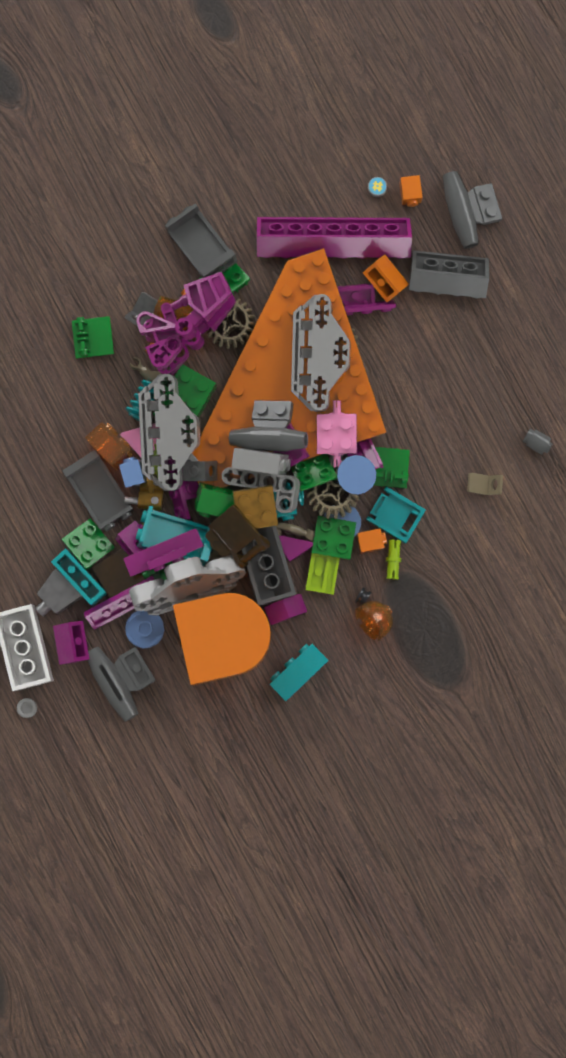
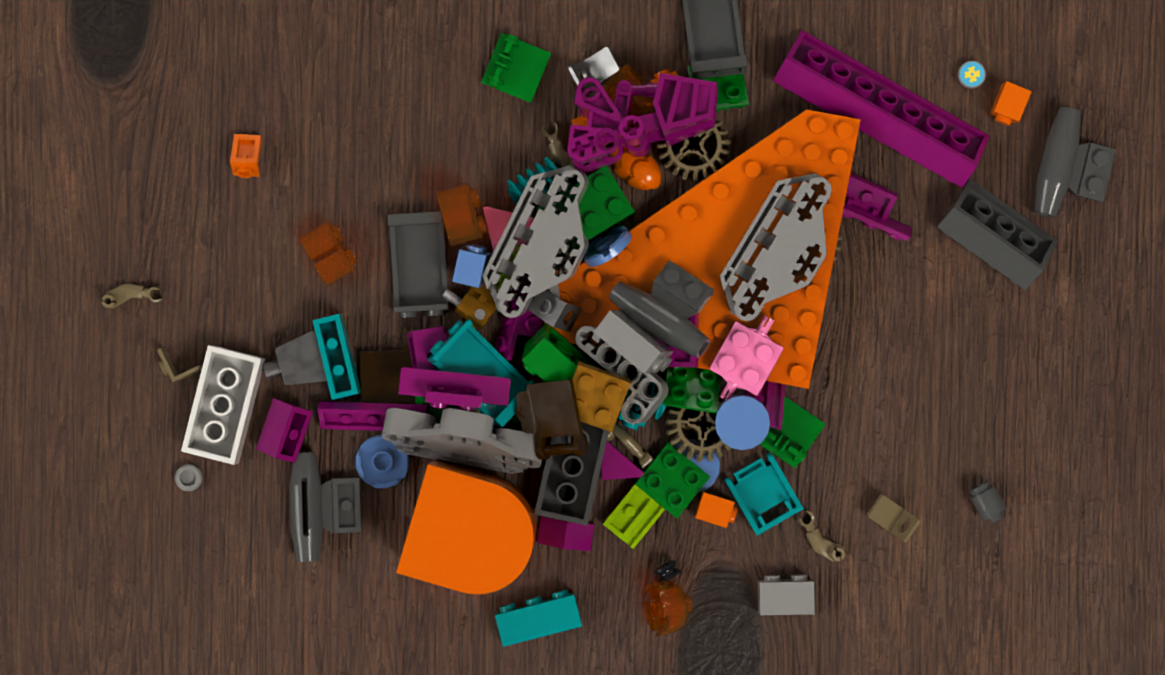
camera: 30 degrees right, 5 degrees up
(30, 511) = (321, 242): none -> clear orange piece
(88, 543) = (370, 320): green hinge -> none
(203, 358) = (638, 172): none -> orange arm
(211, 414) = (604, 249): none -> medium blue tile
(385, 278) = (916, 197): orange brick -> none
(393, 560) = (730, 546): lime pin -> none
(446, 570) = (786, 596): none -> light grey brick
(448, 526) = (819, 544): none -> dark tan arm

